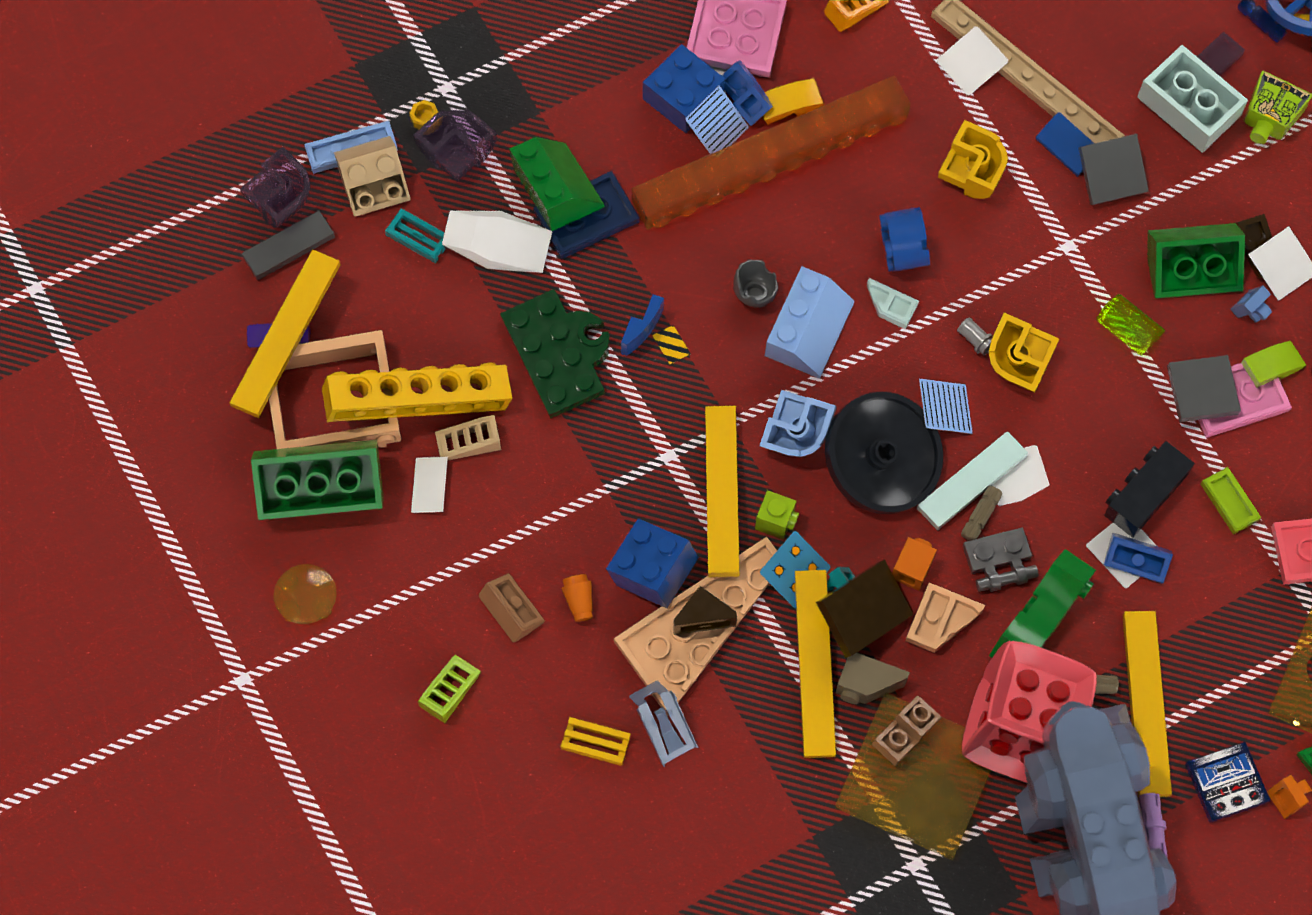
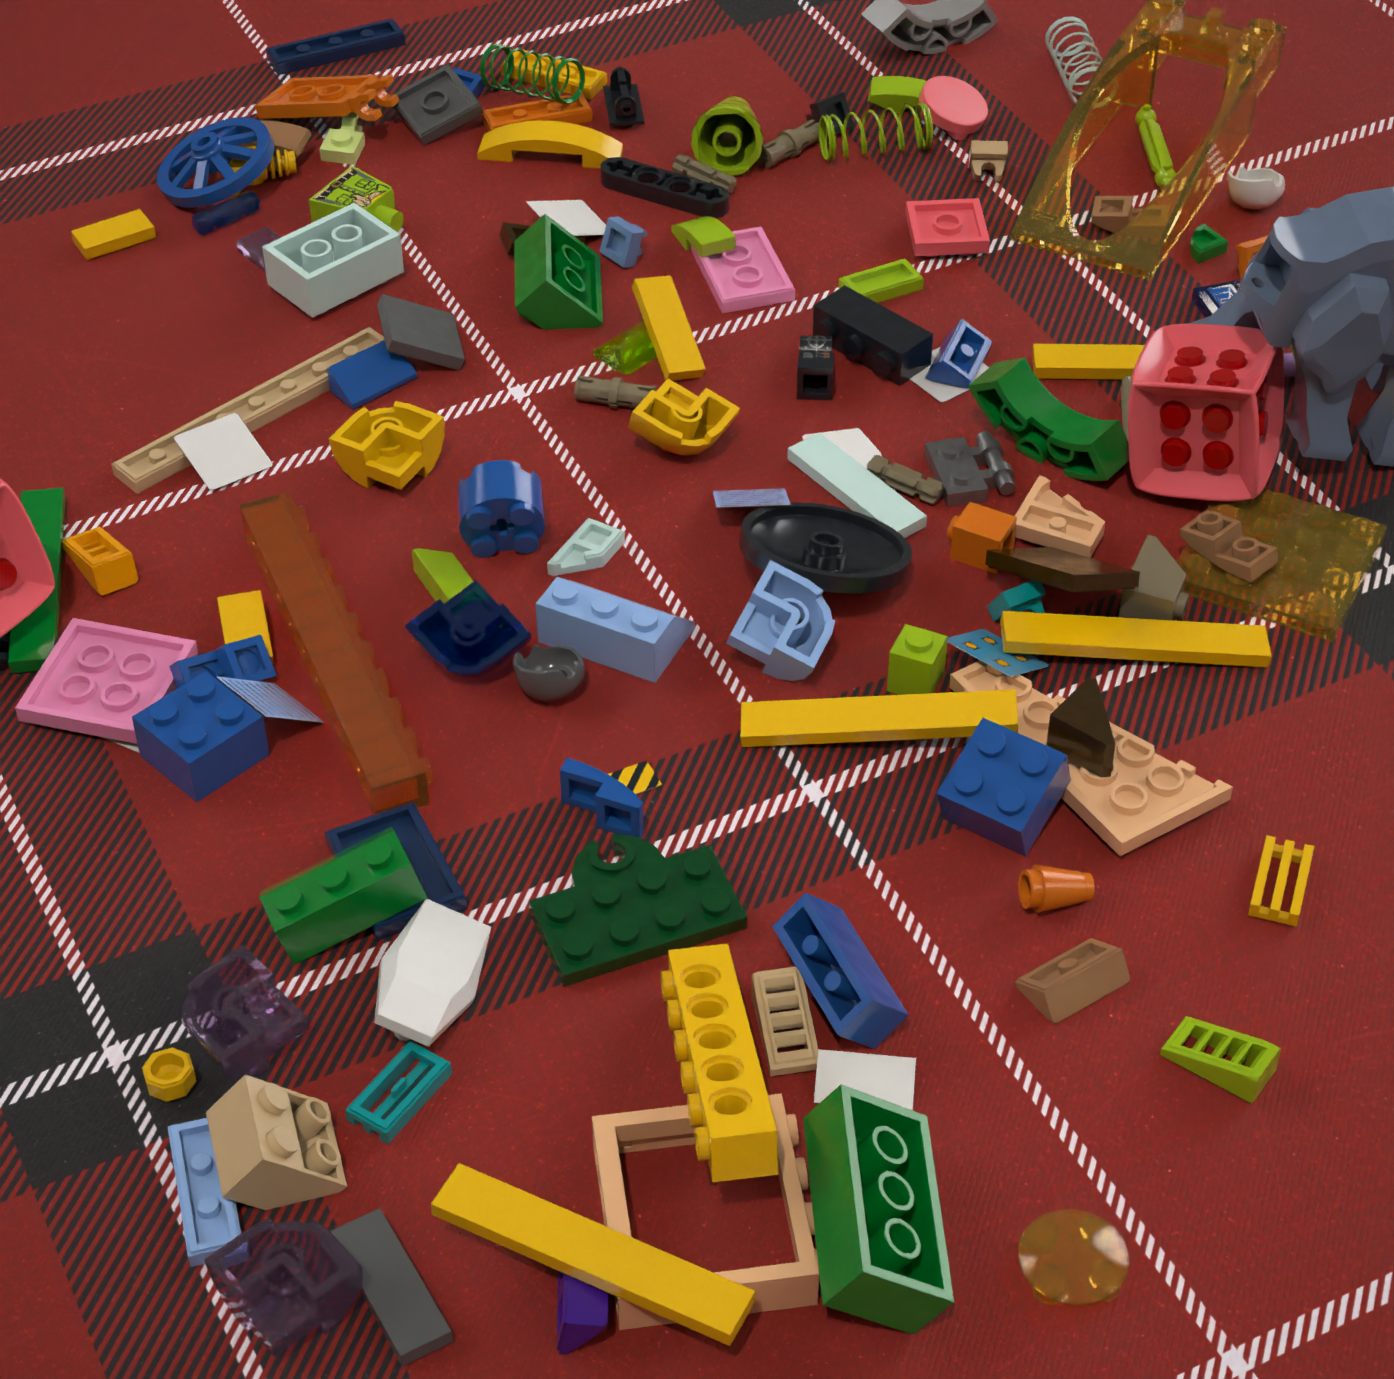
camera: 85 degrees left, 25 degrees down
(498, 464) = (840, 971): none -> blue brick
(672, 741) = (1215, 807): sand blue piece -> none
(781, 232) = (469, 632): none -> clear blue brick
(846, 218) = (440, 573): none -> lime slope
(975, 336) = (655, 463): light grey pin -> none
(1064, 310) = (611, 392): none -> dark tan pin
(1108, 449) = (815, 364): none -> black leg
(1133, 339) = (668, 328): none -> yellow tile
(1203, 388) = (738, 282): dark grey tile -> none

